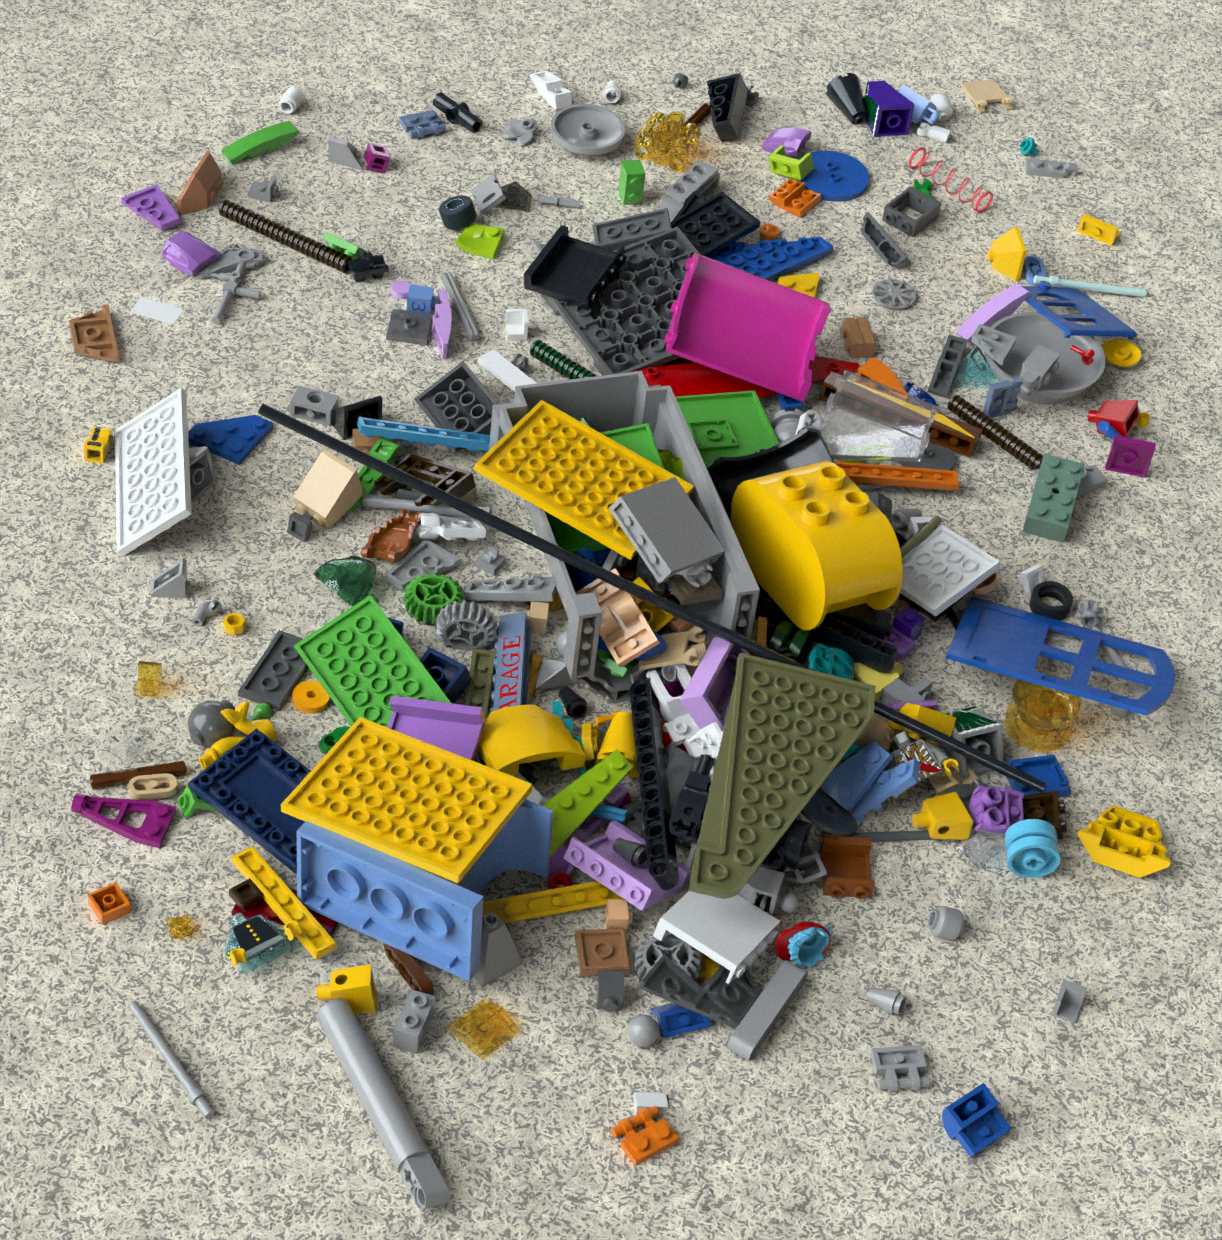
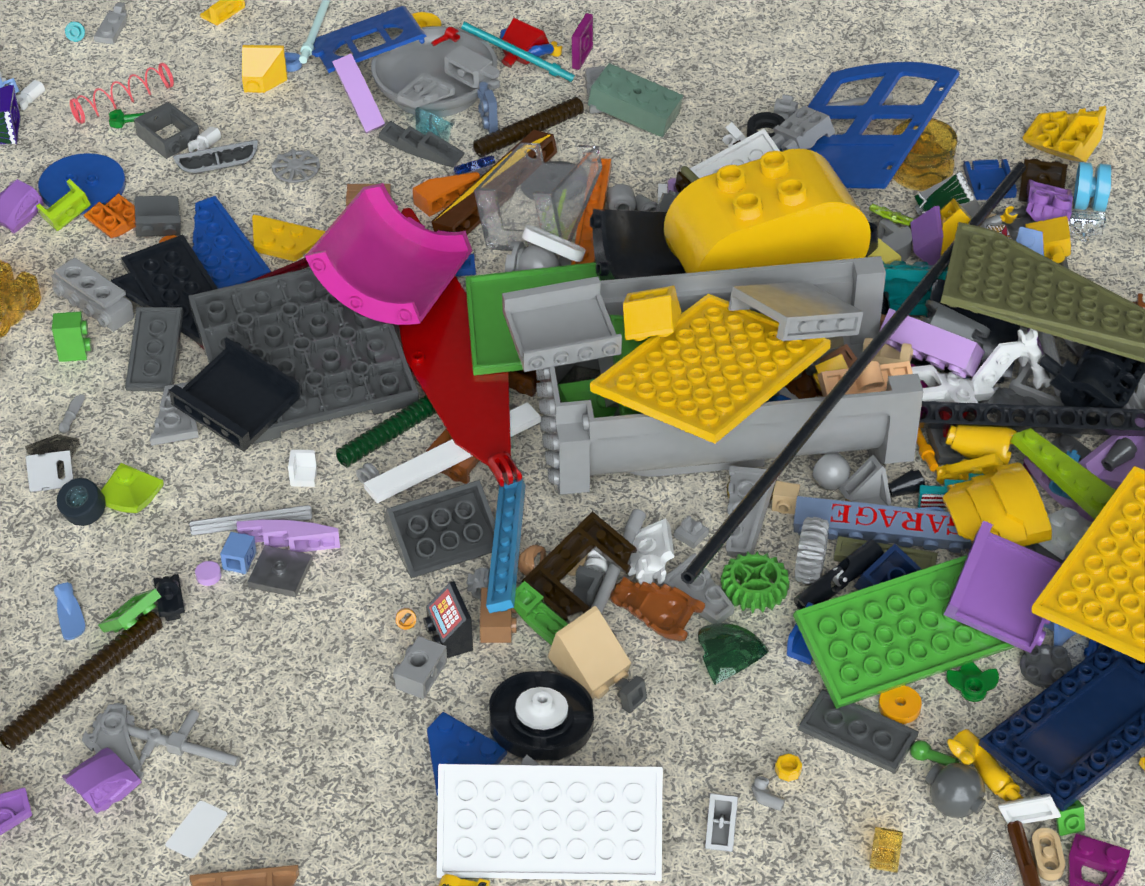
camera: 75 degrees left, 0 degrees up
(191, 766) = (1029, 809): none -> white tile
(267, 472) = (541, 715): none -> black piece
(352, 225) = (69, 612): none -> medium blue piece
(365, 393) = (410, 620): none -> light orange hinge
(427, 638) = (845, 572): none -> black piece
(434, 451) = (526, 558): none -> medium nougat piece
(609, 381) = (560, 324): none -> light grey panel
(637, 434) = (651, 313): none -> yellow slope
(794, 216) = (157, 216): none -> dark grey bracket
(906, 235) = (205, 139): none -> white bar
(906, 496) = (621, 198): none -> light grey head
(942, 690) = (892, 216): none -> lime wheel
(1041, 614) = (802, 129): none -> light grey hips
(1089, 443) = (554, 69): none -> teal bar

